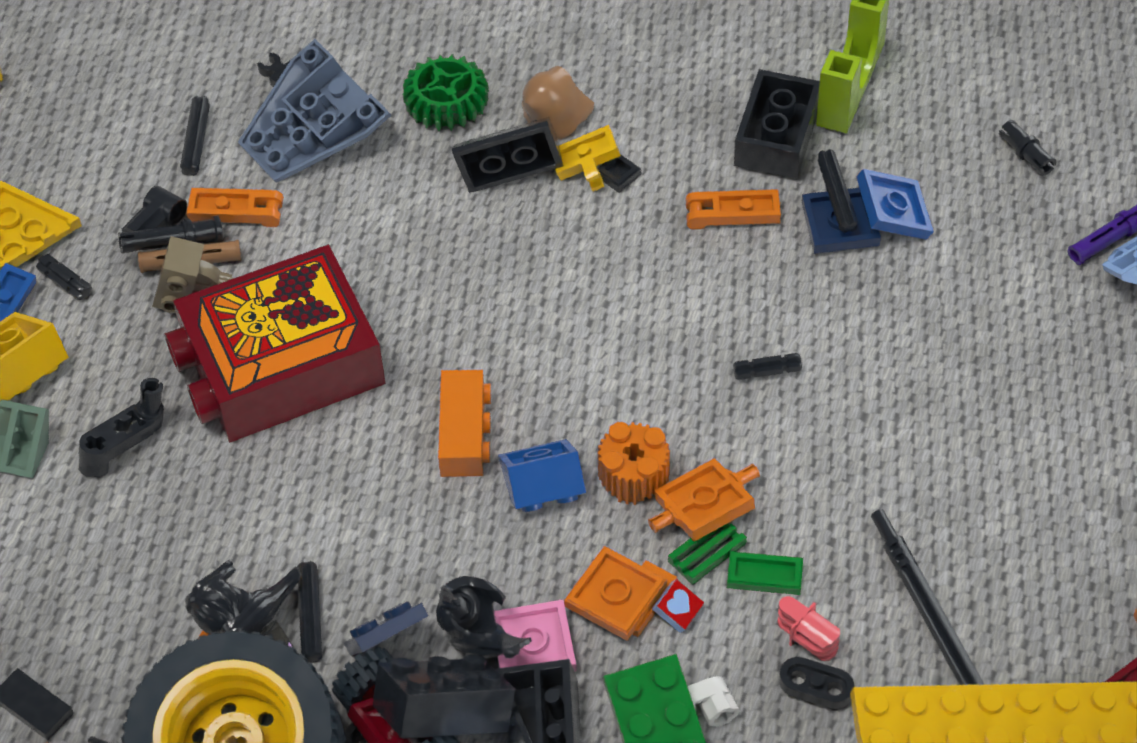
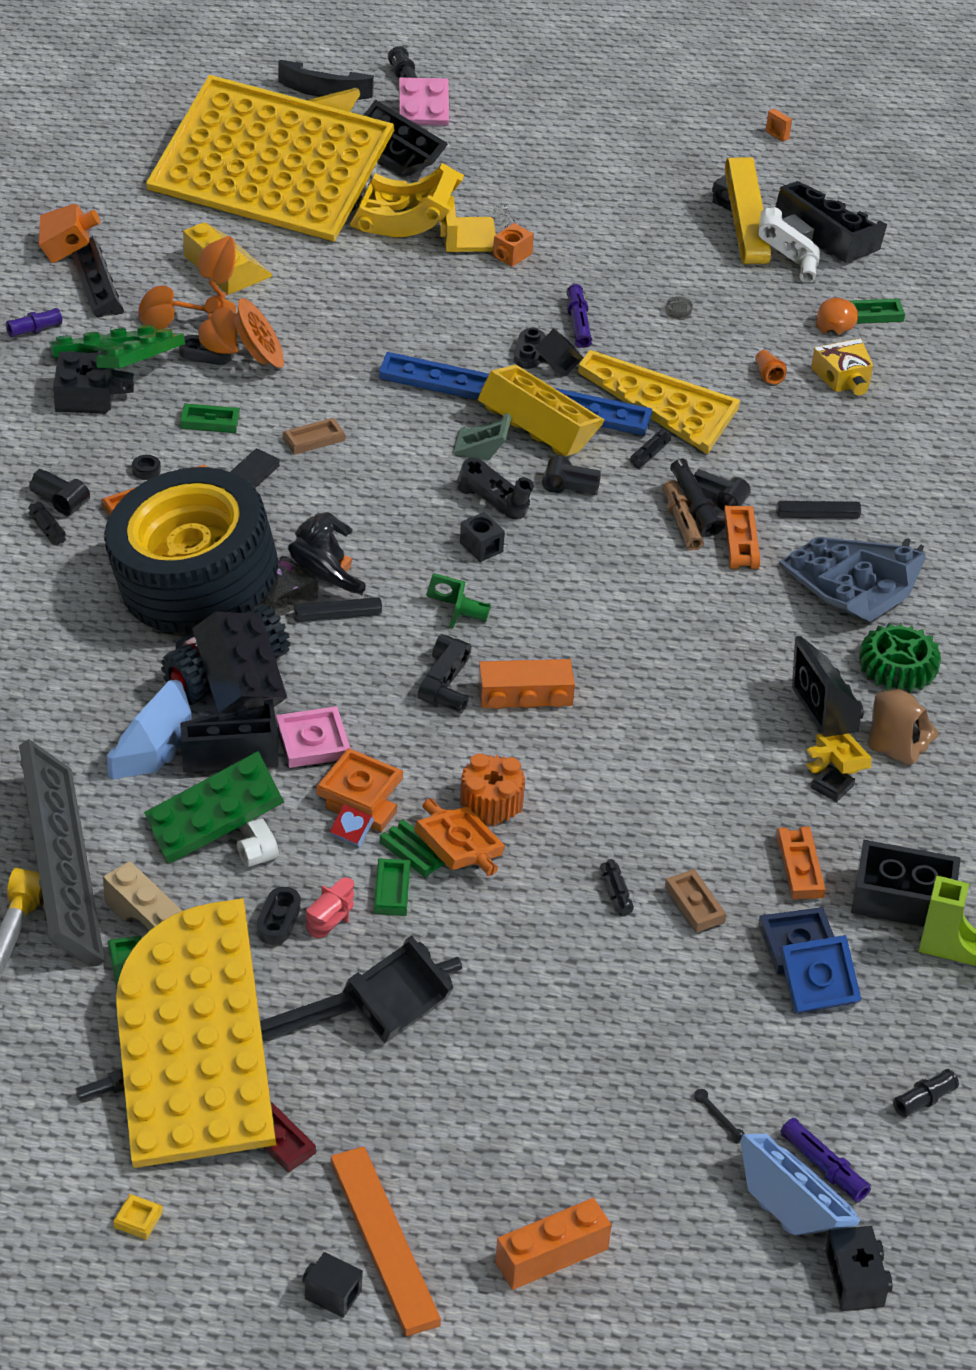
camera: 80 degrees right, 10 degrees down
(106, 362) = (563, 475): none -> black piece
(184, 273) = (645, 506): dark tan brick -> none
(204, 439) = (482, 536): none -> black brick
(275, 344) = (587, 562): brick -> none
(318, 481) = (462, 605): none -> green bracket
(395, 621) = (312, 637): dark blue plate -> none
(460, 514) = (451, 657): none -> black beam
(469, 617) = (324, 683): black hair -> none
(542, 475) = (476, 729): blue slope -> none
(788, 299) = (695, 900): none -> medium nougat plate
(837, 191) = (825, 927): black axle -> none
(933, 563) = (399, 989): none -> black panel
(1037, 322) = (701, 1096): none -> black hinge

